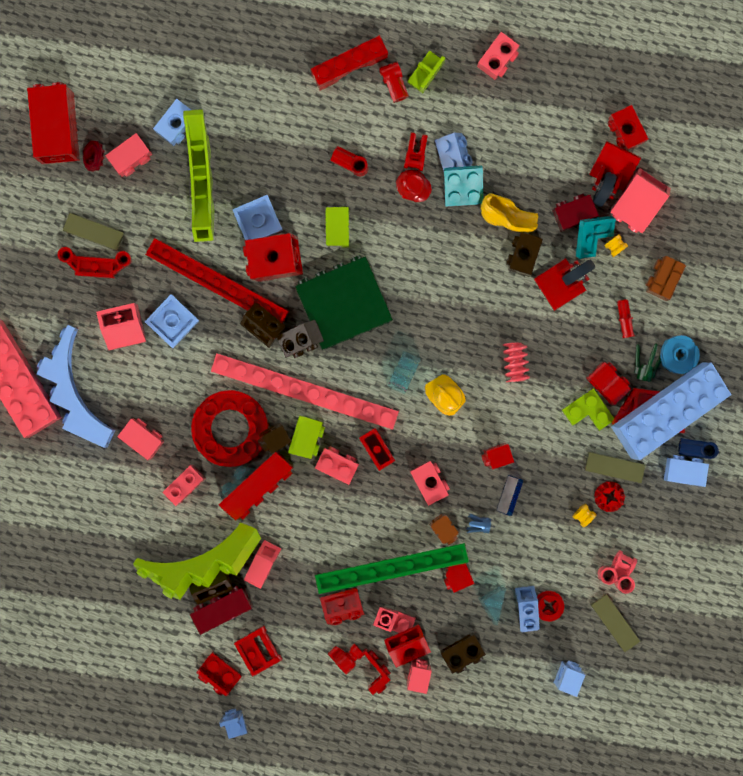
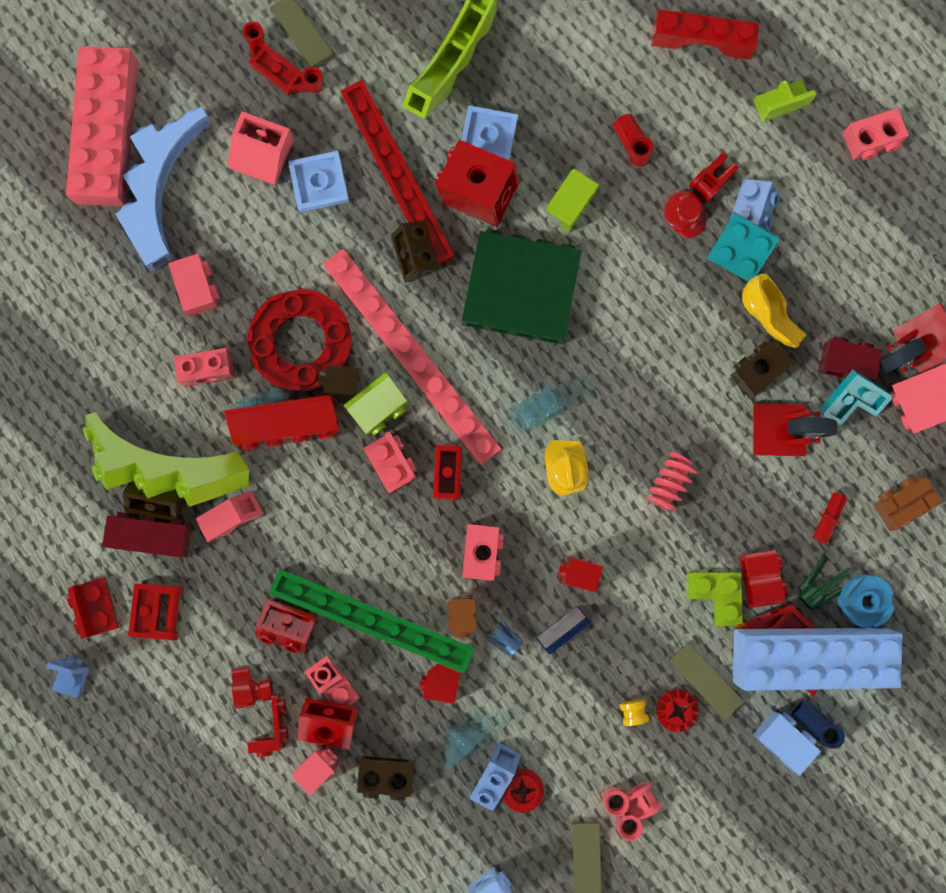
camera: 35 degrees right, 5 degrees down
(300, 339) = (446, 292): dark brown brick -> none
(393, 79) = (741, 83): red piece -> none
(616, 245) = (873, 428): yellow wheel -> none

